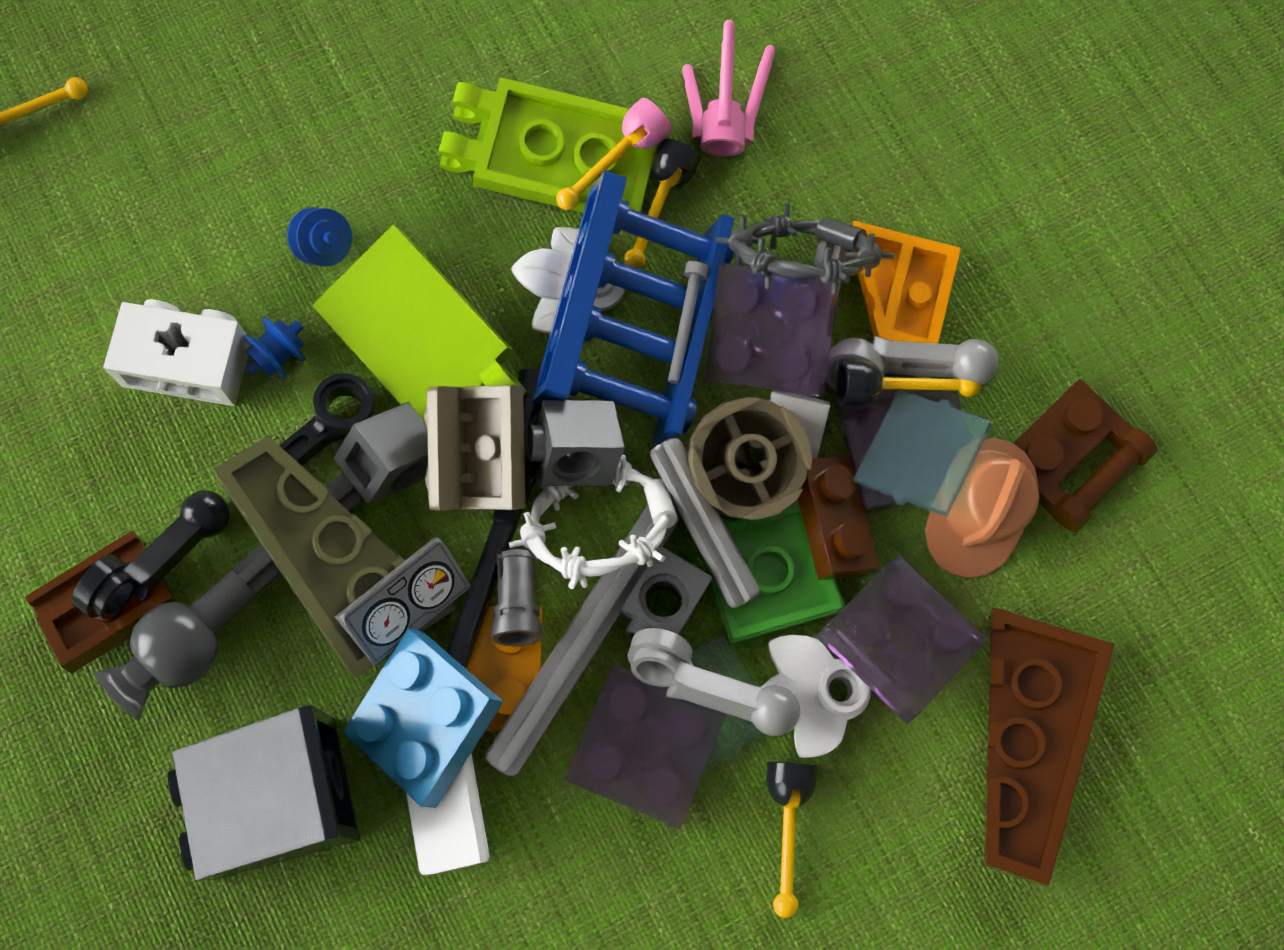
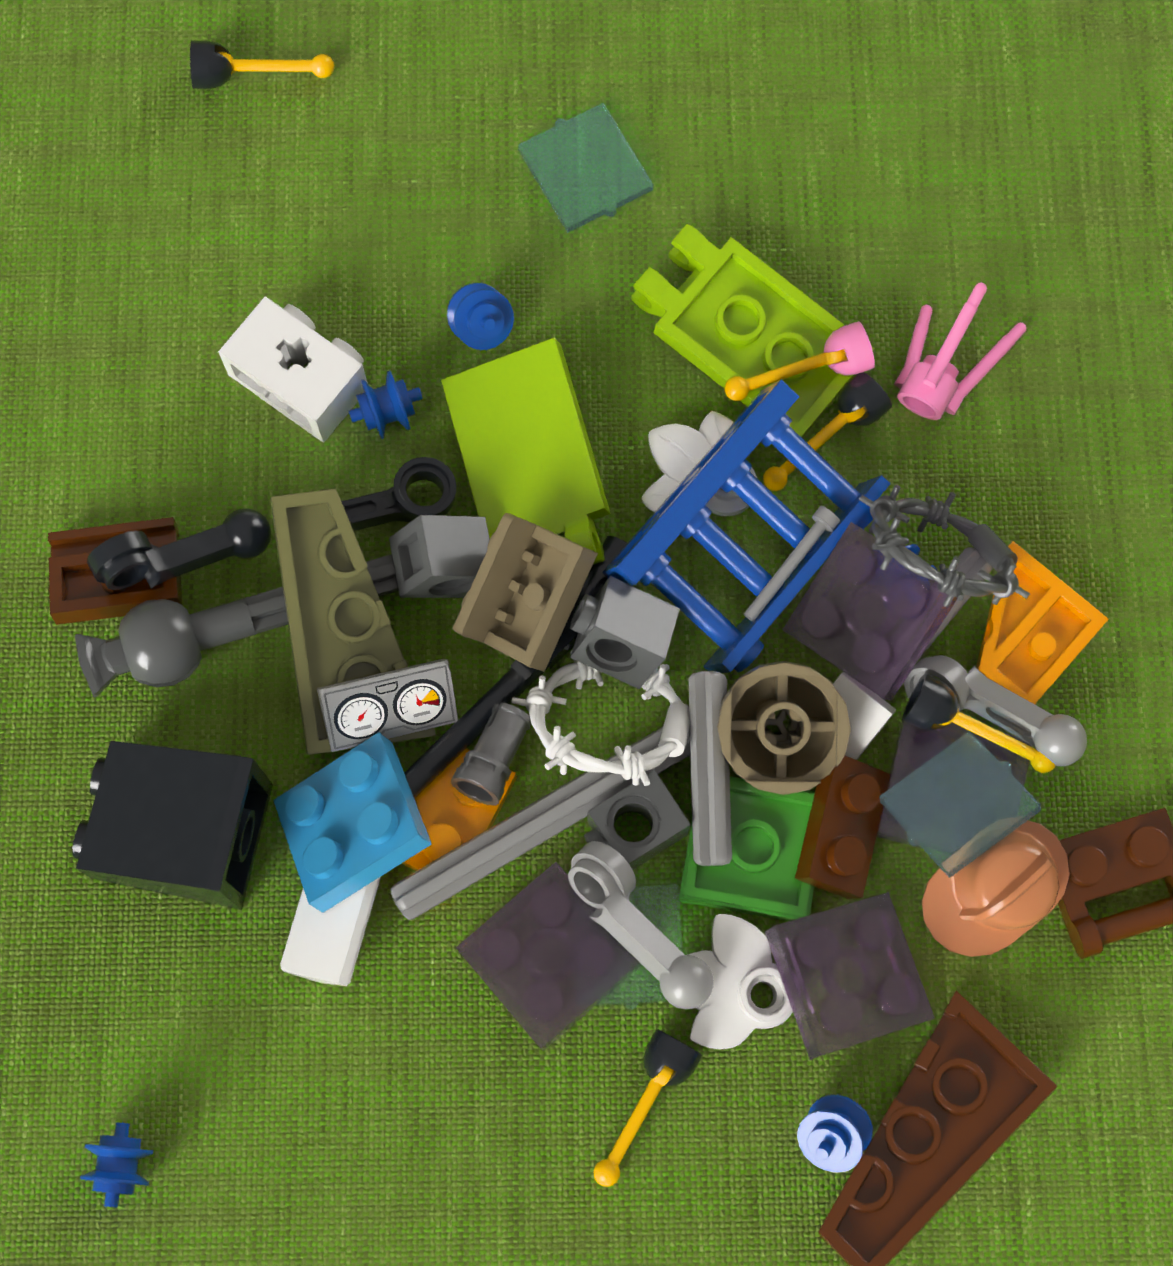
camera: 30 degrees right, 0 degrees up
(347, 76) = (585, 167): none -> clear light blue piece
(957, 774) = (835, 1133): none -> wheel

